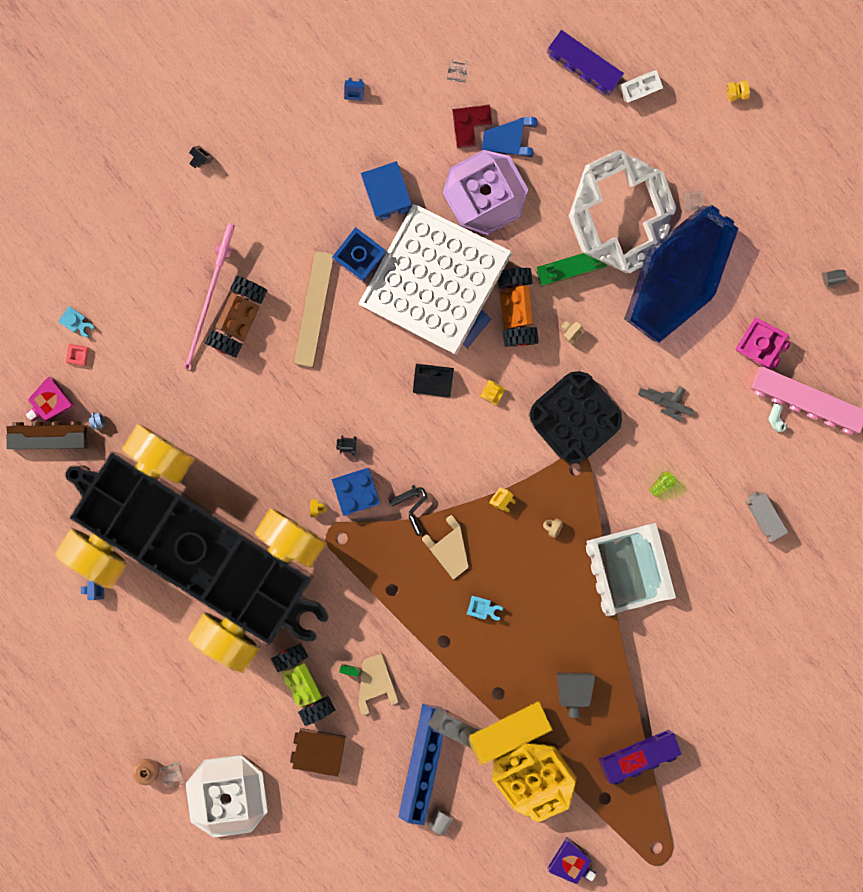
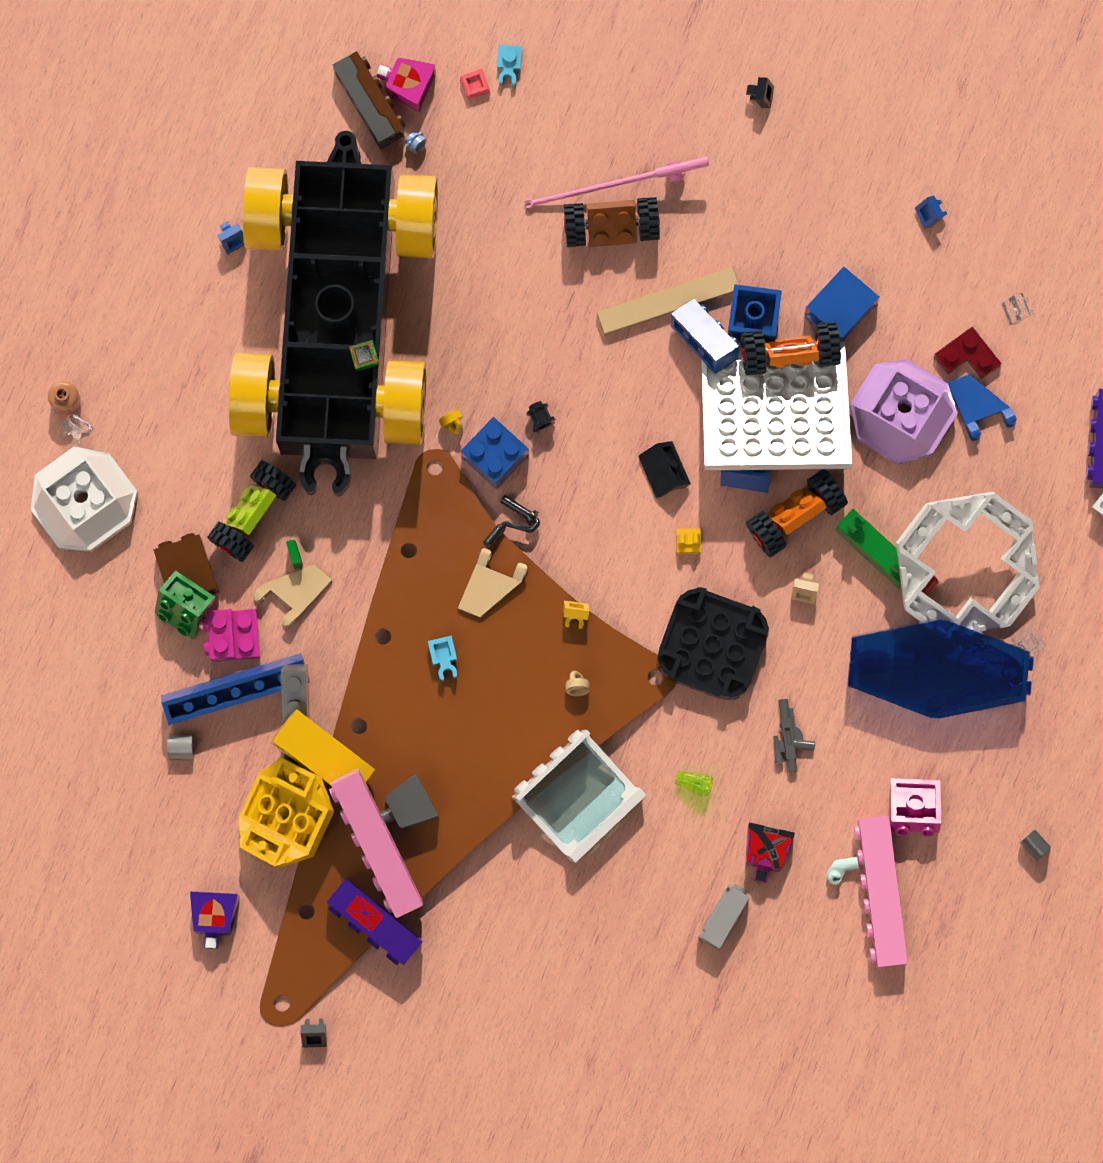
camera: 65 degrees right, 10 degrees down
(242, 549) = (364, 355): none -> tile
(343, 768) = (182, 604): none -> green bracket
(356, 298) = (705, 336): none -> brick
(382, 744) = (231, 635): none -> dark pink plate
(402, 245) = (791, 350): none -> plate
(590, 728) = (376, 842): none -> bright pink brick
(691, 839) = (313, 1034): none -> black tile
(737, 461) = (766, 849): none -> torso

